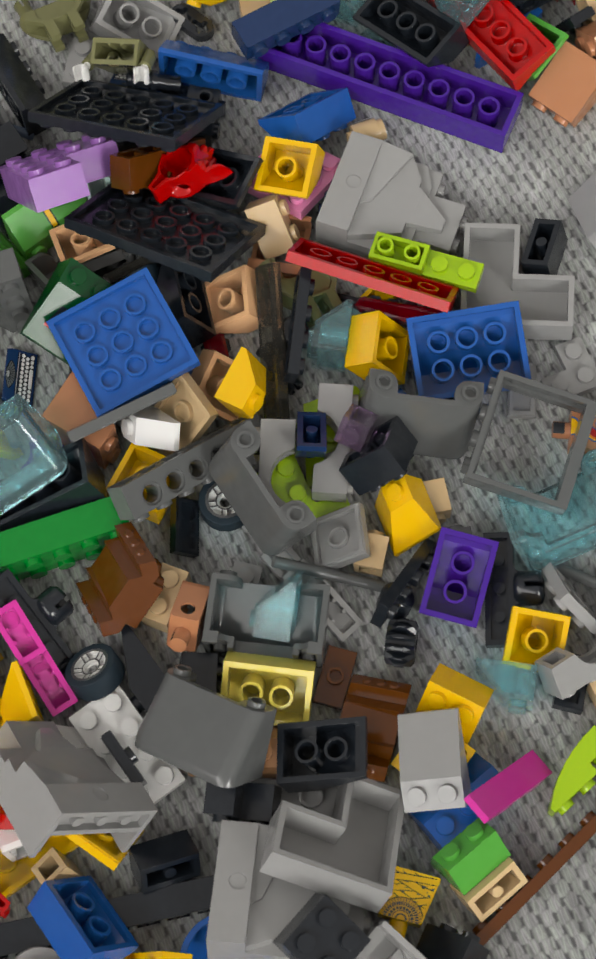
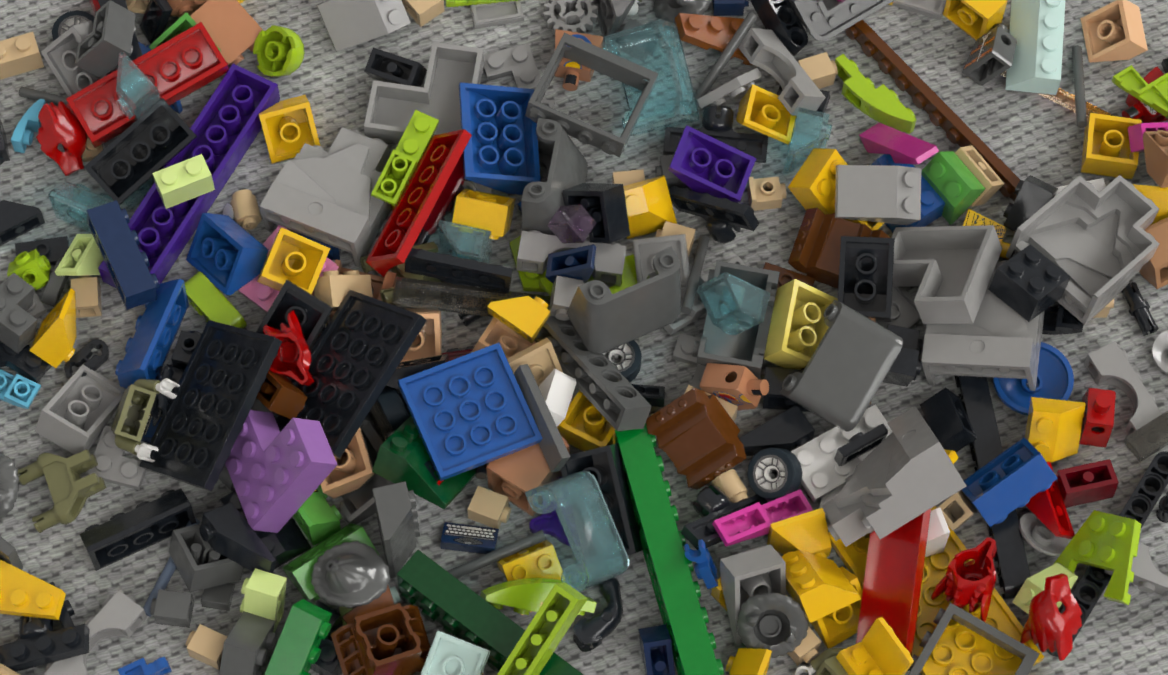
camera: 90 degrees left, 5 degrees down
(45, 388) = (489, 508): none -> tan brick
(79, 630) = (731, 485): none -> tan brick
(243, 127) = (211, 303): none -> lime beam
(373, 60) = (183, 181): none -> yellowish green brick
(401, 642) = (770, 222): black gear -> none
(443, 634) = (760, 195): none -> tan brick
(465, 161) = (288, 128): none -> yellow slope
(551, 141) = (278, 51): none -> lime cylinder

